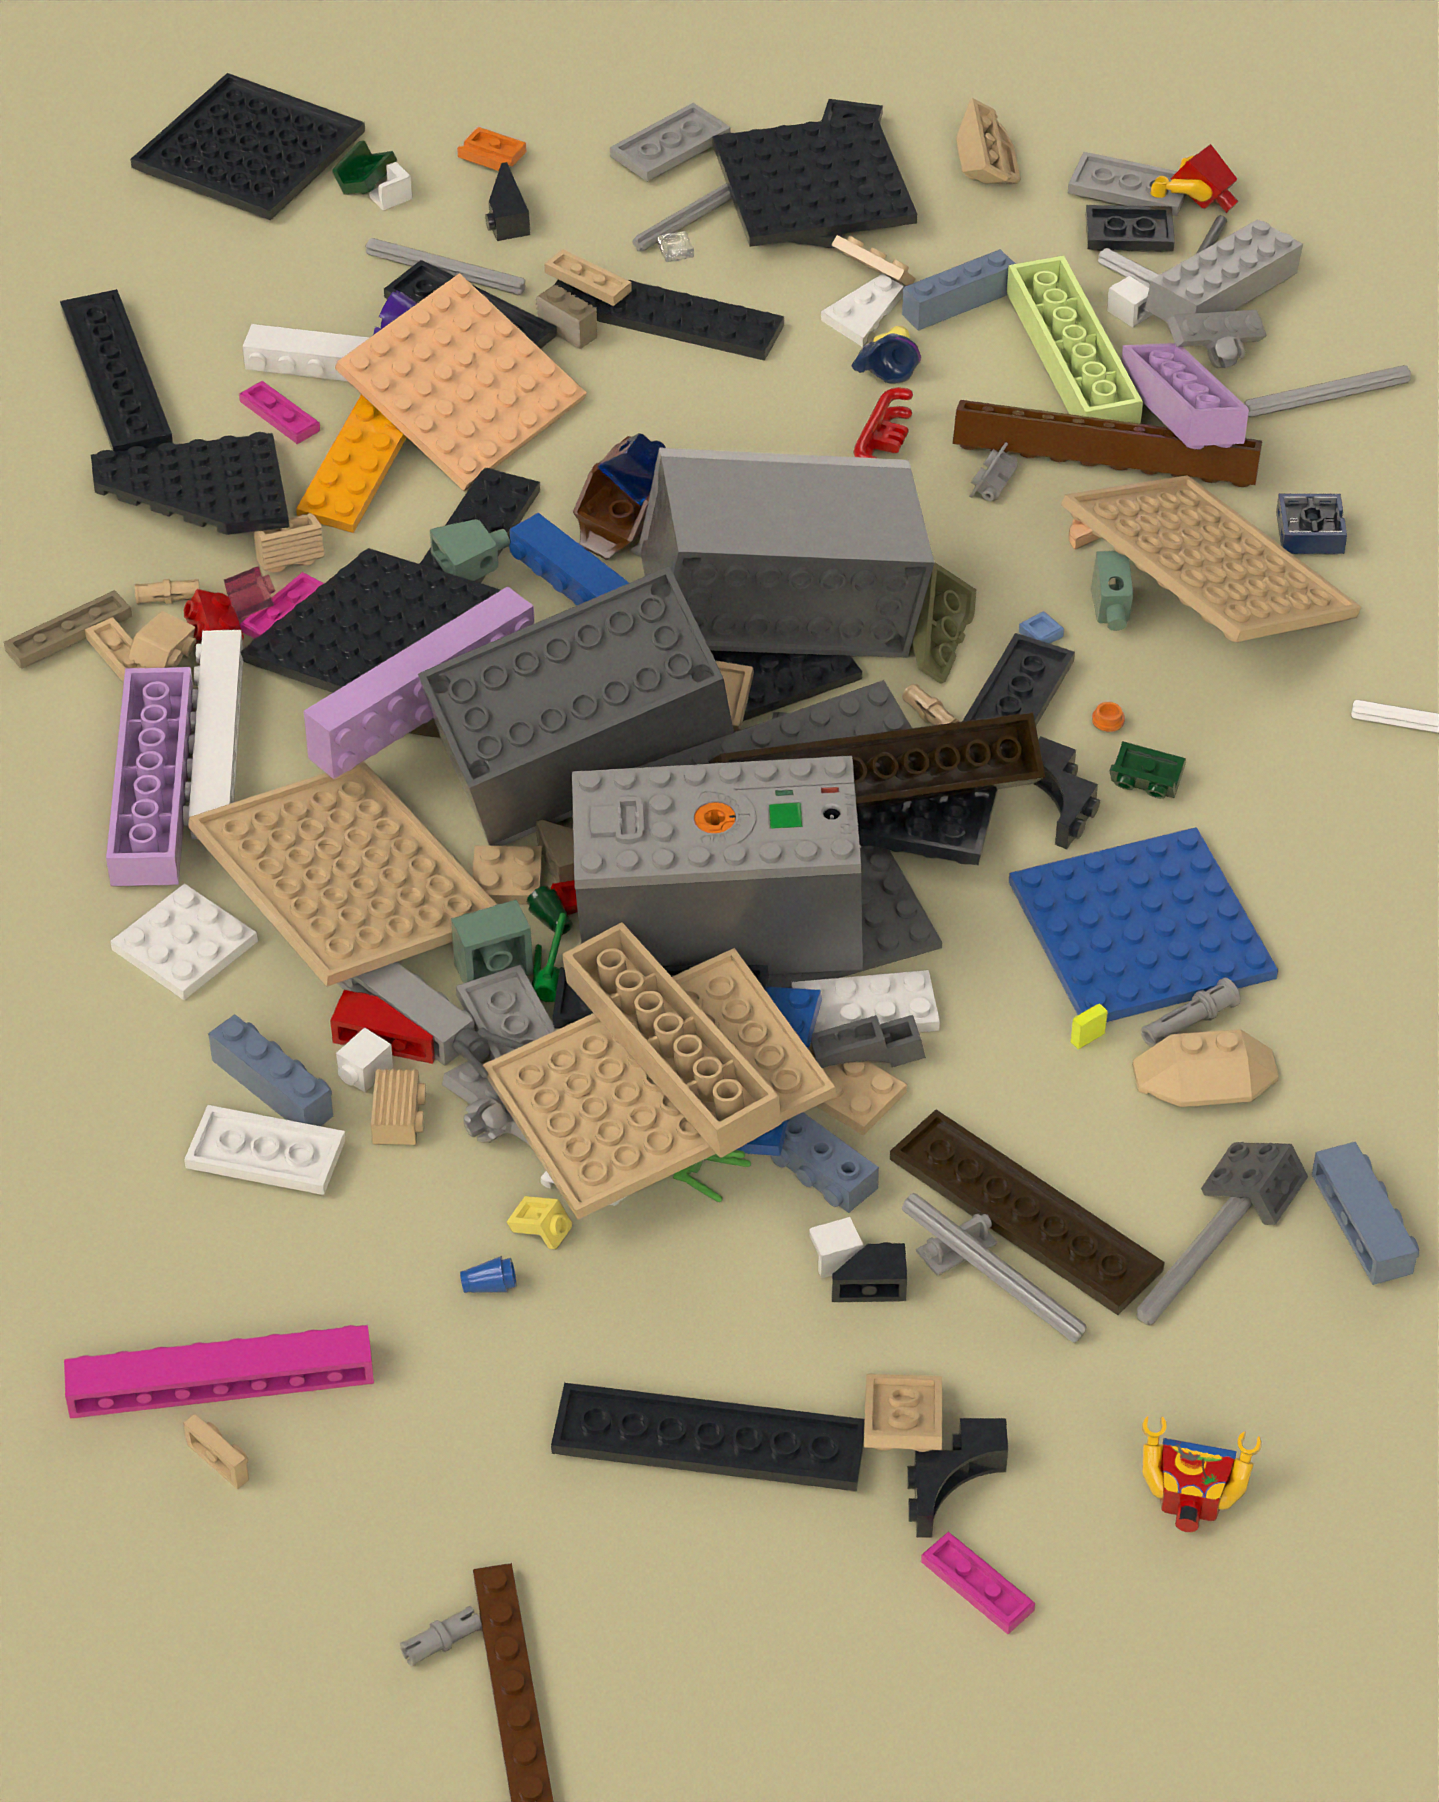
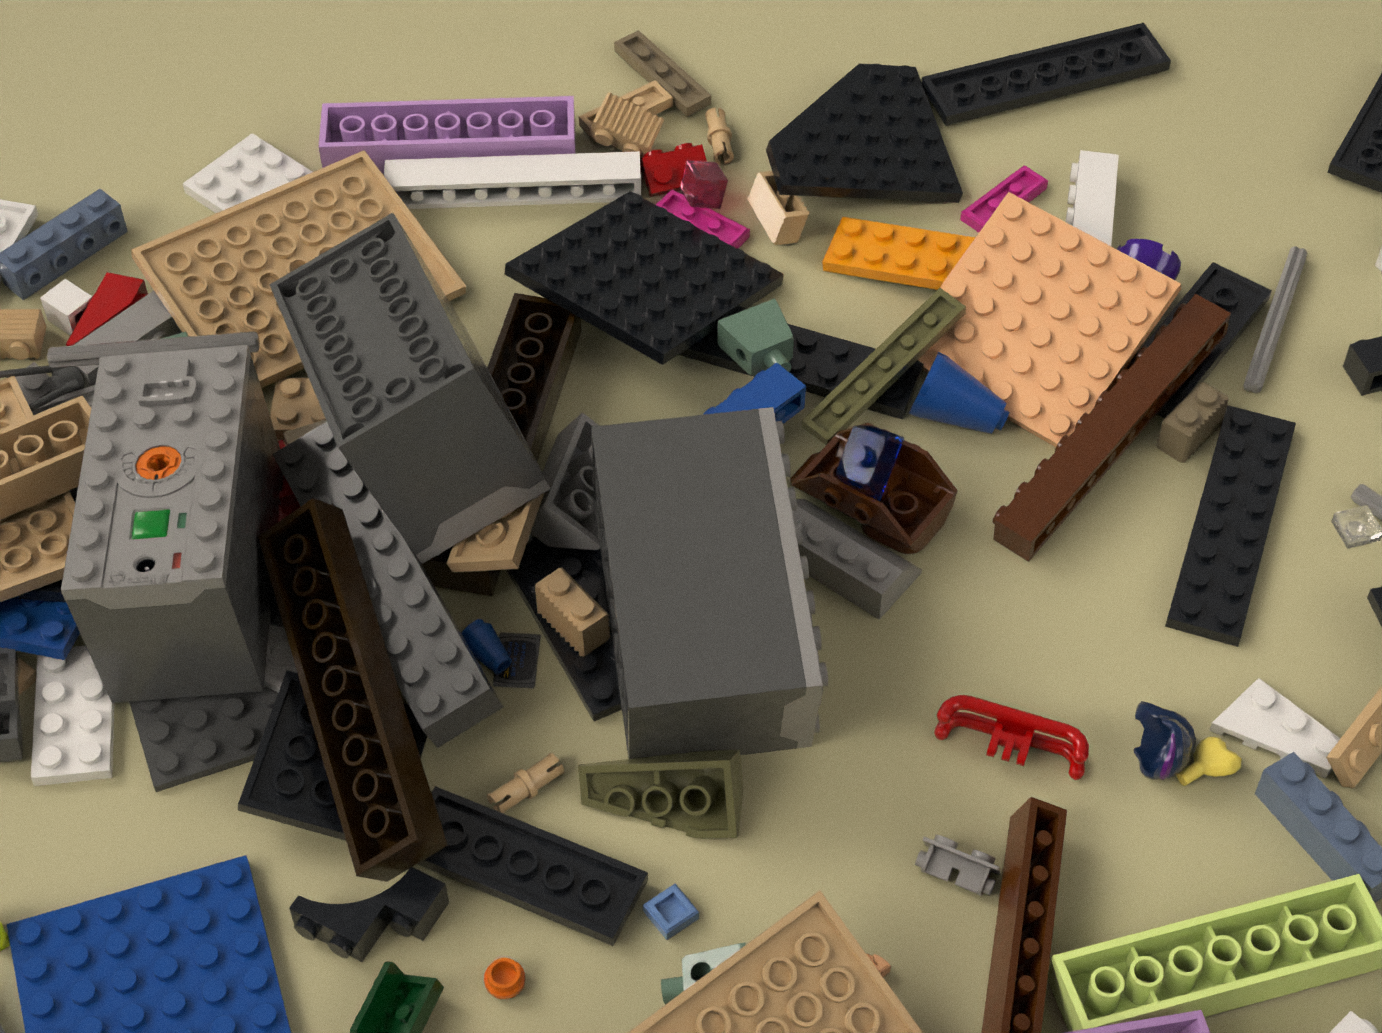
camera: 90 degrees right, 5 degrees up
(390, 697) = (512, 288): lavender brick -> none
(482, 933) = (90, 354): none -> light grey axle
(502, 472) = (884, 366): none -> olive plate
(532, 445) = (958, 399): none -> blue cone
(588, 277) = (1255, 431): tan plate -> none
(591, 360) = (1110, 427): none -> reddish brown brick
(777, 664) = (572, 612): none -> tan brick

